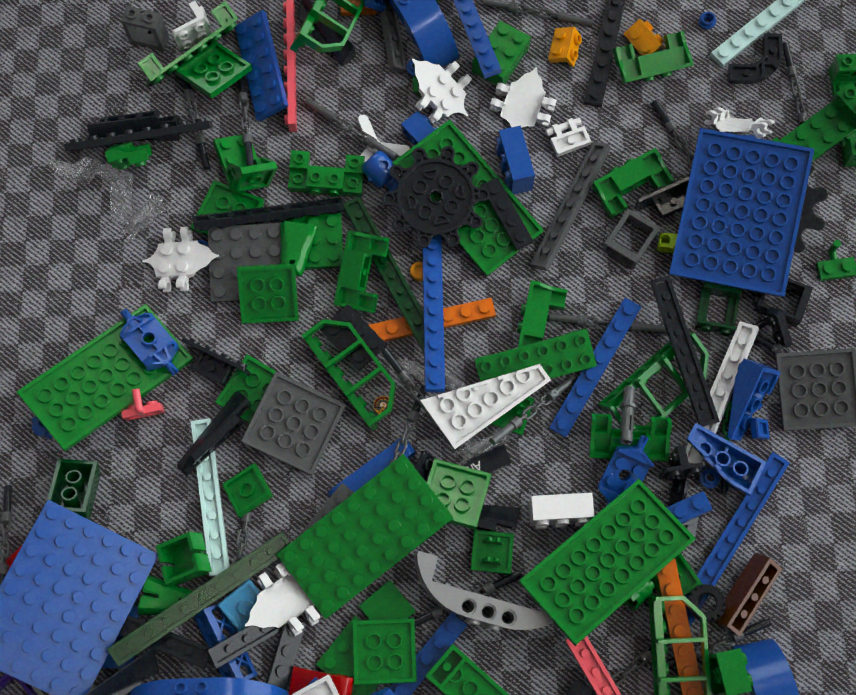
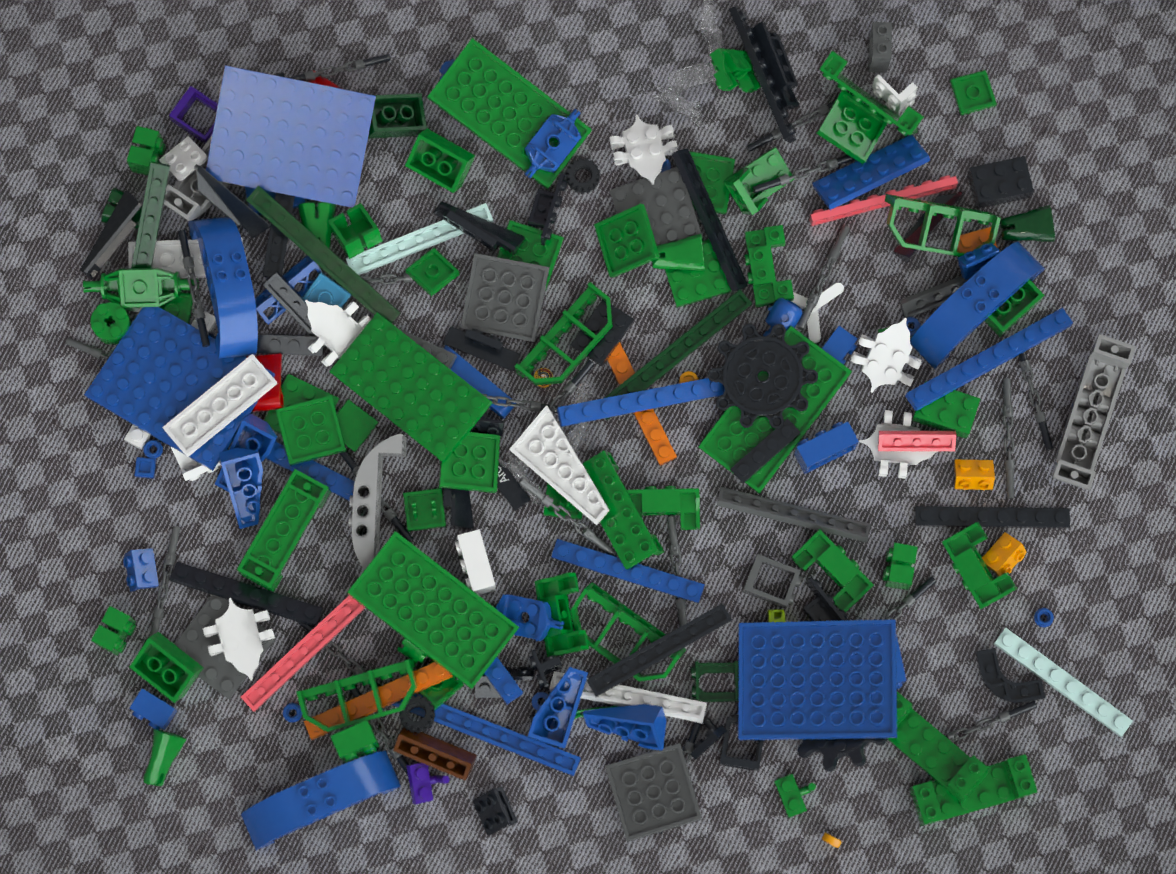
camera: 75 degrees right, 5 degrees up
(134, 455) = (440, 160): none -> green brick
(138, 410) = (484, 150): coral plate -> none
(182, 314) = (582, 164): none -> black tyre
(337, 458) = (482, 347): none -> black bracket
(355, 270) = (670, 317): green bracket -> none
(525, 84) = (916, 440): none -> coral plate
(569, 141) = (866, 501): white plate -> none
(628, 407) = (580, 606): dark grey pin -> none
(633, 127) = (899, 569): none -> green piece
(726, 123) = (920, 661): white animal -> none
(759, 428) = (601, 742): blue tile -> none
(773, 616) = (421, 782): none -> dark purple plate
(813, 547) = (494, 810): none -> black bracket

